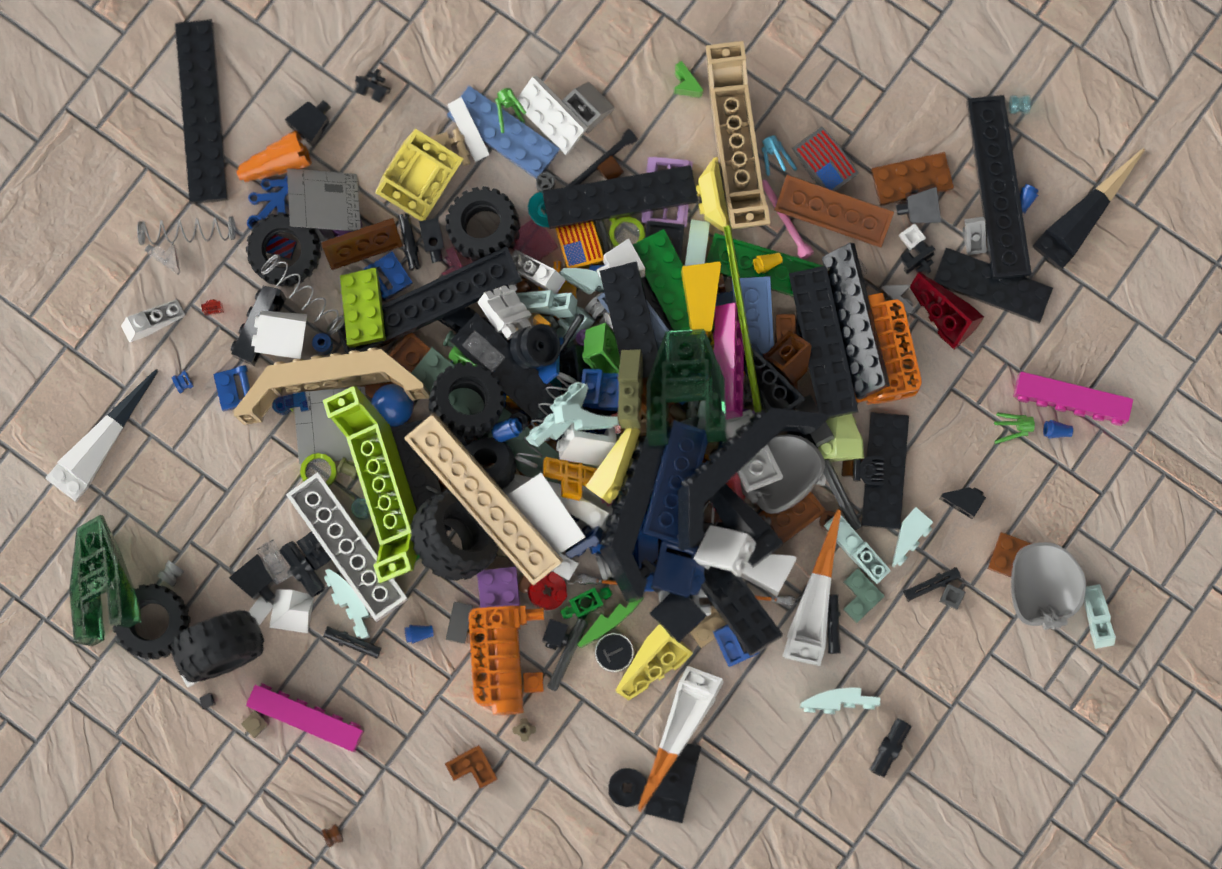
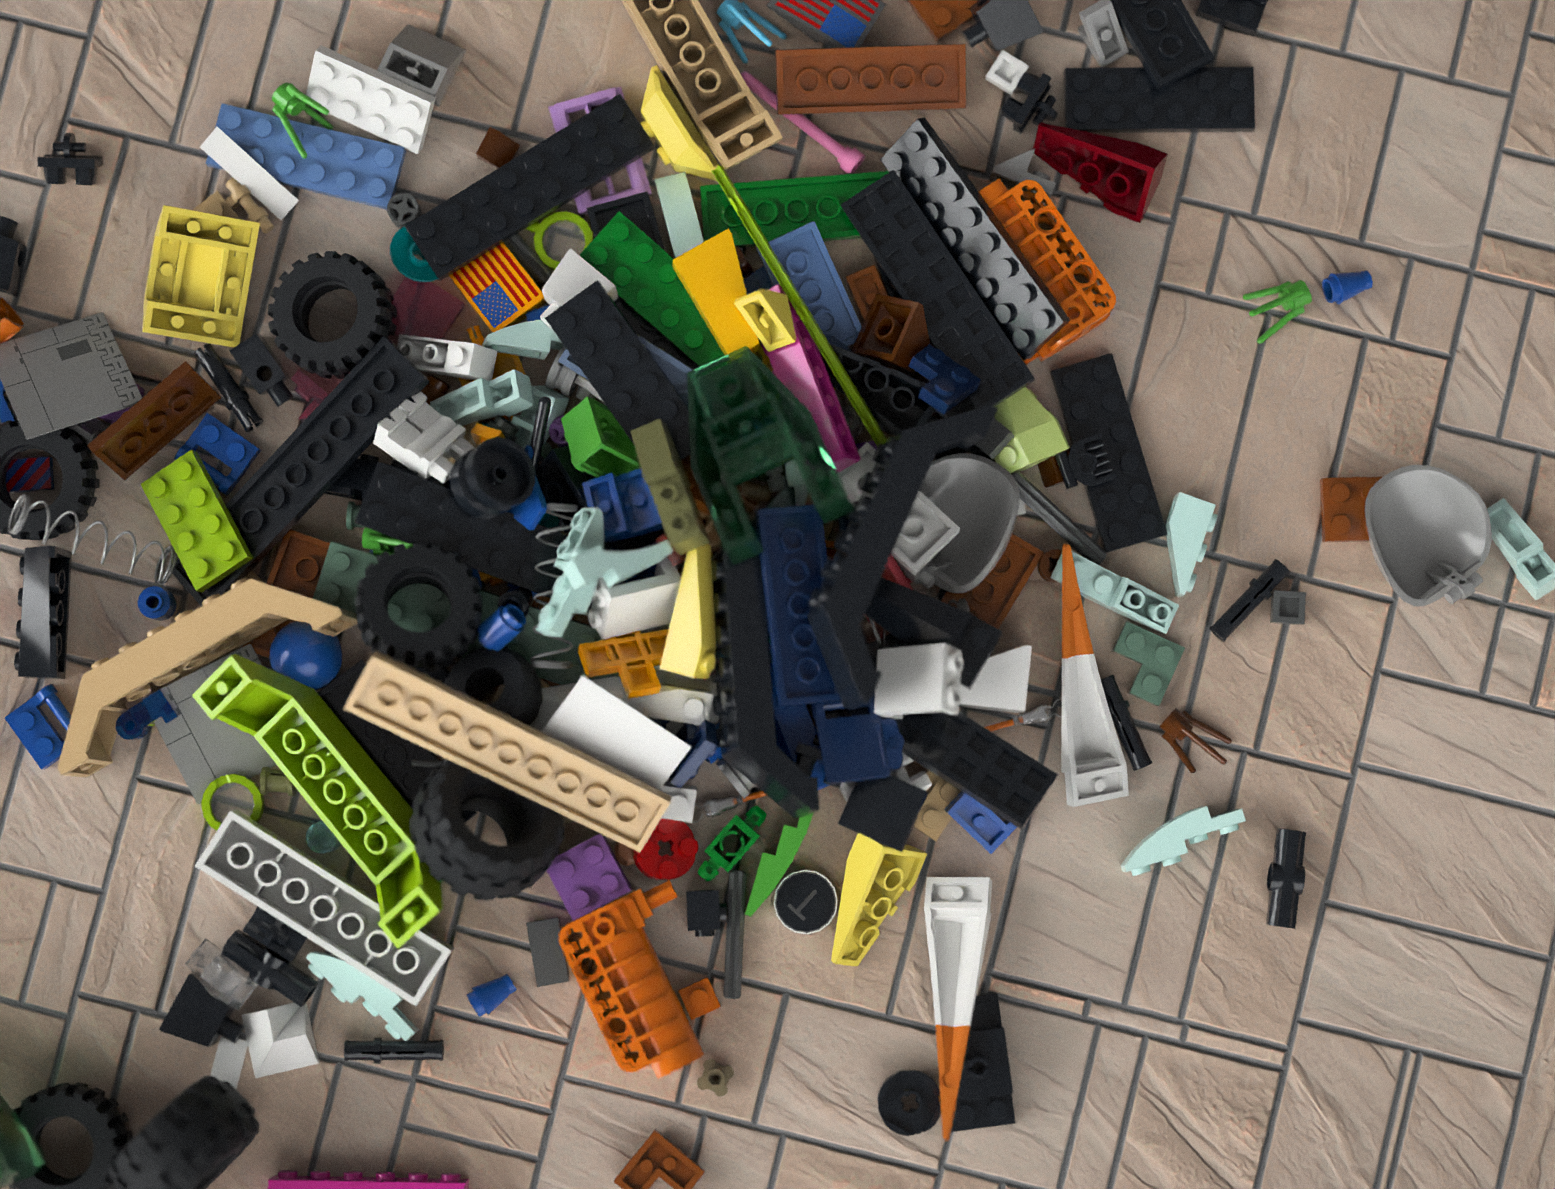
camera: 25 degrees left, 5 degrees up
(170, 573) = (65, 1058): light grey wheel -> none
(280, 333) = (82, 615): white slope -> none
(483, 351) = (414, 518): clear slope -> none
(627, 139) = (505, 90): black piece -> none
(723, 318) = (769, 317): none -> light yellow slope
(766, 262) = (798, 201): yellow cone -> none
(808, 391) = (948, 380): none -> dark blue plate
(864, 638) = (1178, 727): none -> reddish brown plant
(964, 500) = (1250, 452): black slope -> none
(1073, 398) = (1351, 226): dark pink brick -> none

